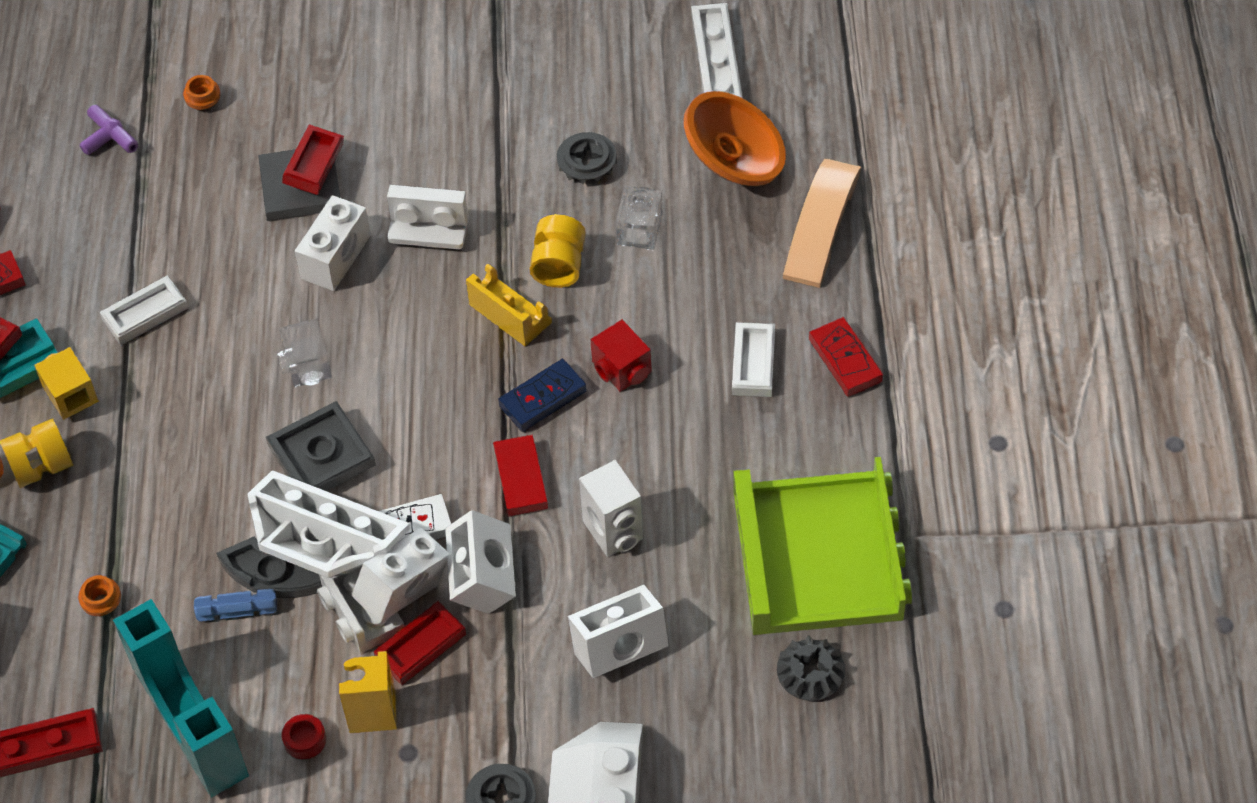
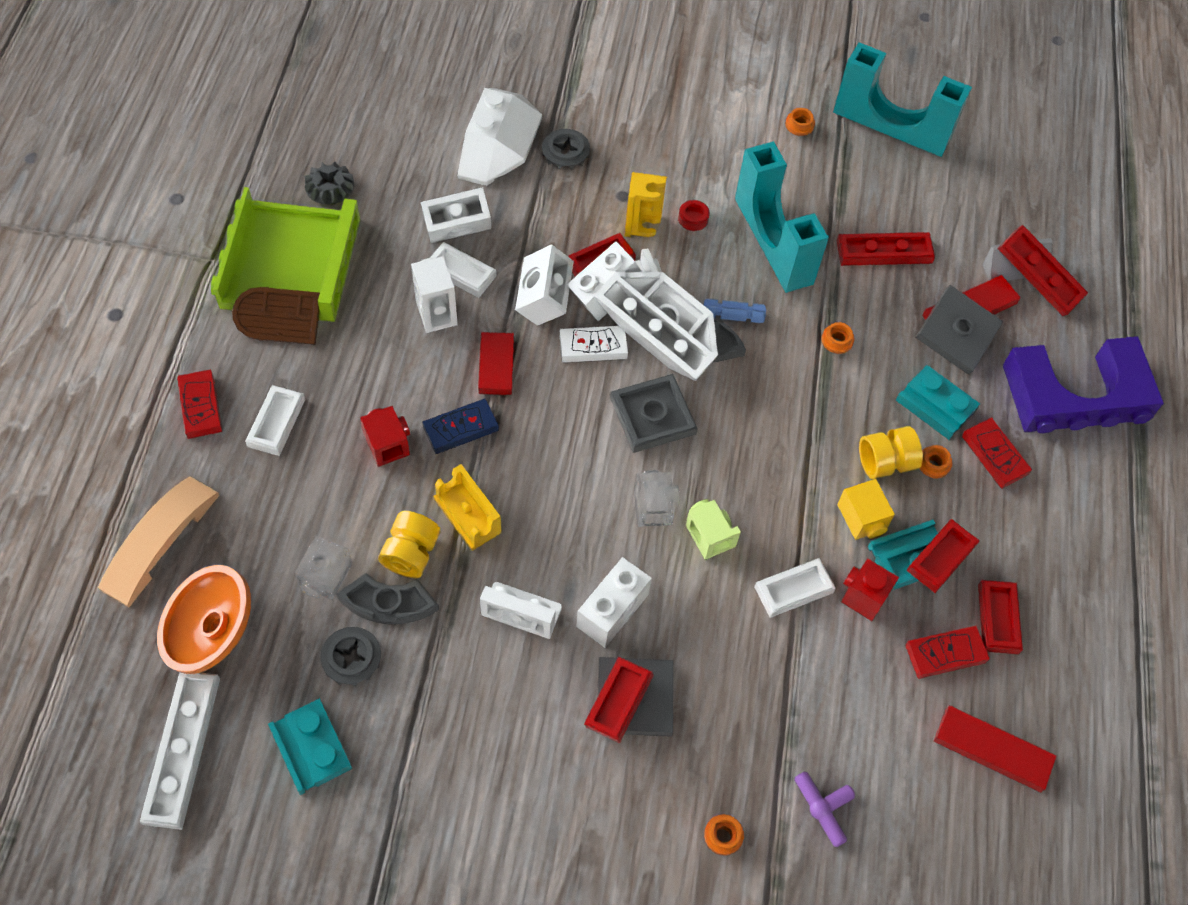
camera: 175 degrees left, 5 degrees up
(63, 308) = (868, 588): none -> red brick
(237, 335) = (711, 528): none -> yellowish green brick
(588, 208) = (388, 602): none -> dark grey tile
(590, 582) = (465, 270): none -> white tile
(600, 86) = (310, 746): none -> teal plate
(799, 468) = (277, 315): none -> reddish brown window

